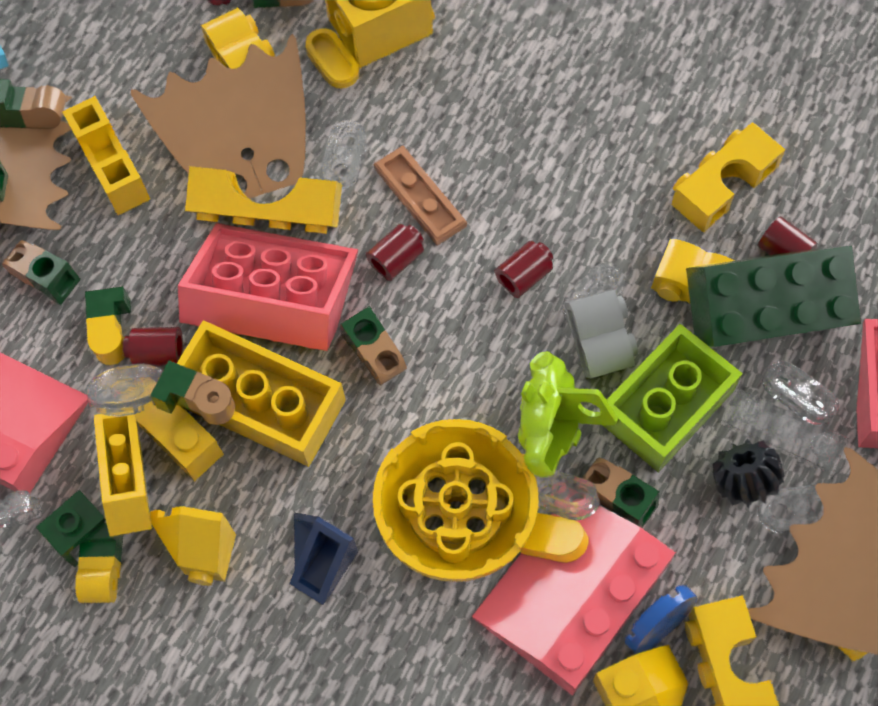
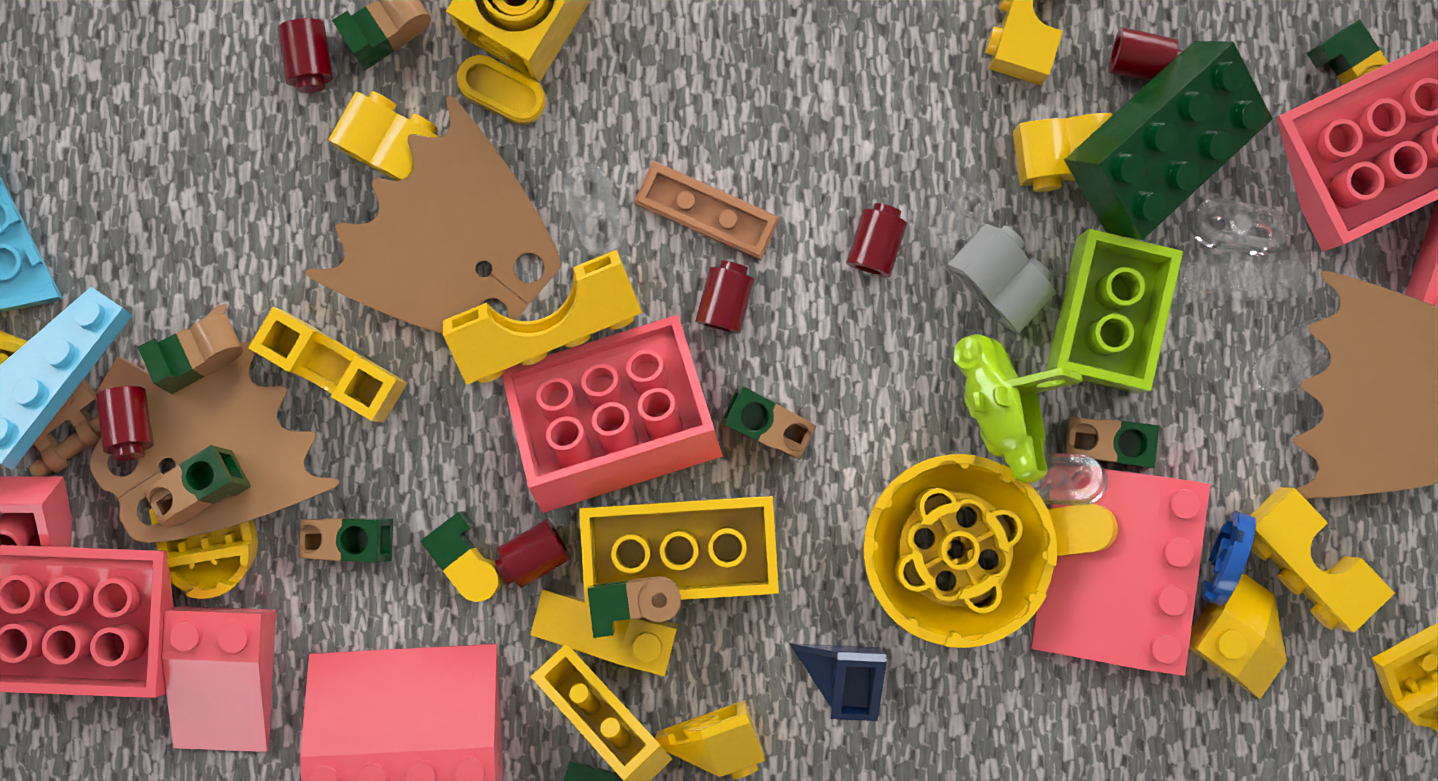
camera: 30 degrees left, 20 degrees up
(123, 389) = (542, 625): clear tile -> none
(748, 473) = (1243, 362): black gear -> none

